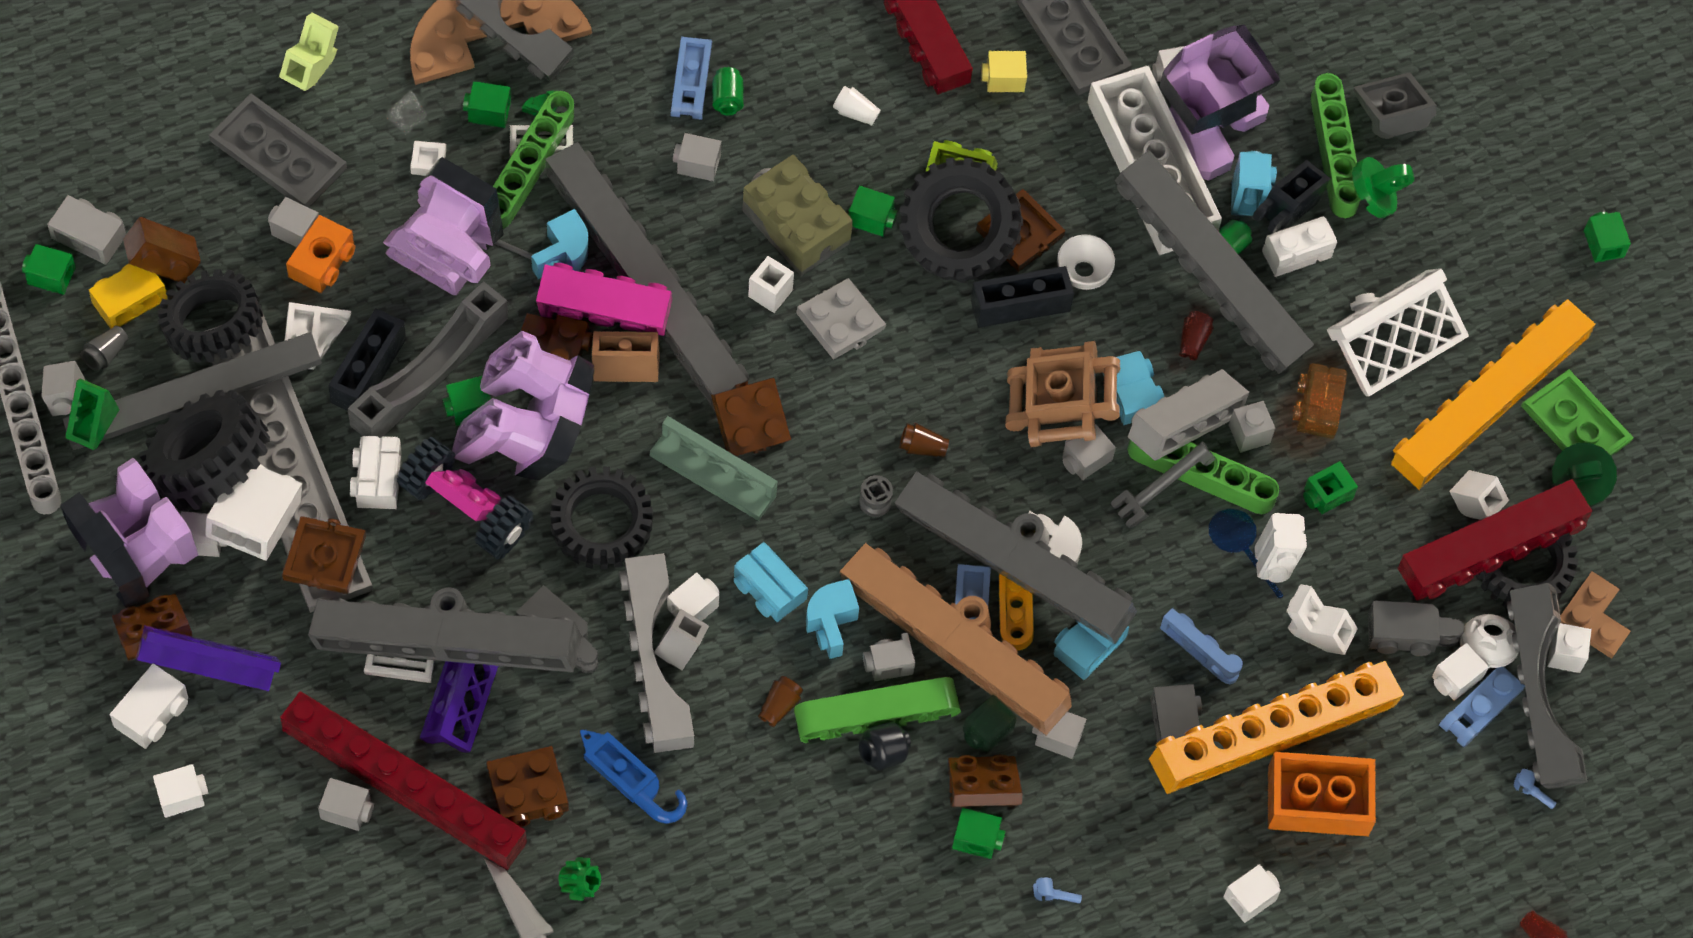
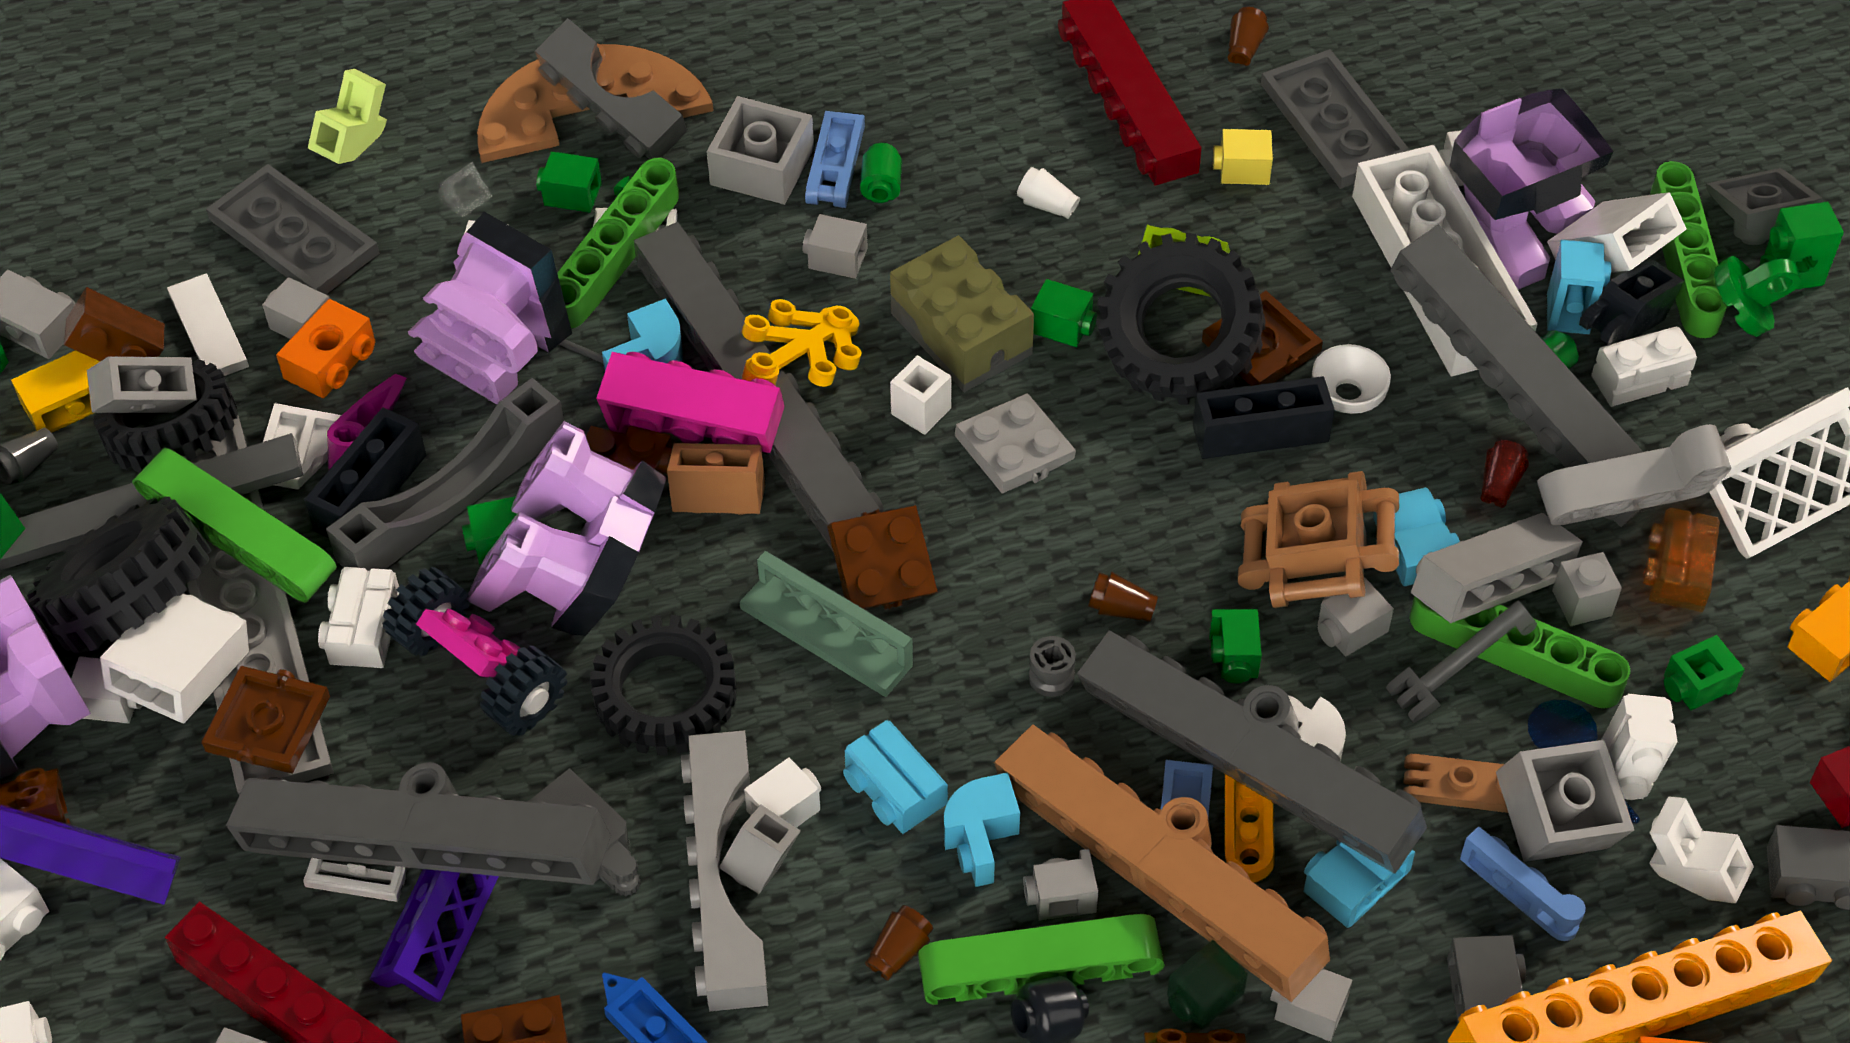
camera: 10 degrees right, 10 degrees down
(194, 297) = (141, 384): none -> light grey brick
(224, 234) = (207, 324): none -> white tile
(281, 407) = (238, 525): none -> bright green beam
(356, 316) = (358, 416): none -> magenta piece
(634, 75) = (760, 150): none -> light grey brick
(700, 224) = (832, 324): none -> yellow plant
(1005, 475) = (1236, 643): none -> green brick
(1167, 574) = (1454, 782): none -> medium nougat hinge
(1230, 587) = (1564, 800): none -> light grey brick
(1286, 347) = (1637, 481): none -> light grey beam
(1287, 135) = (1627, 227): none -> white brick
(1419, 144) = (1807, 237): none -> green brick

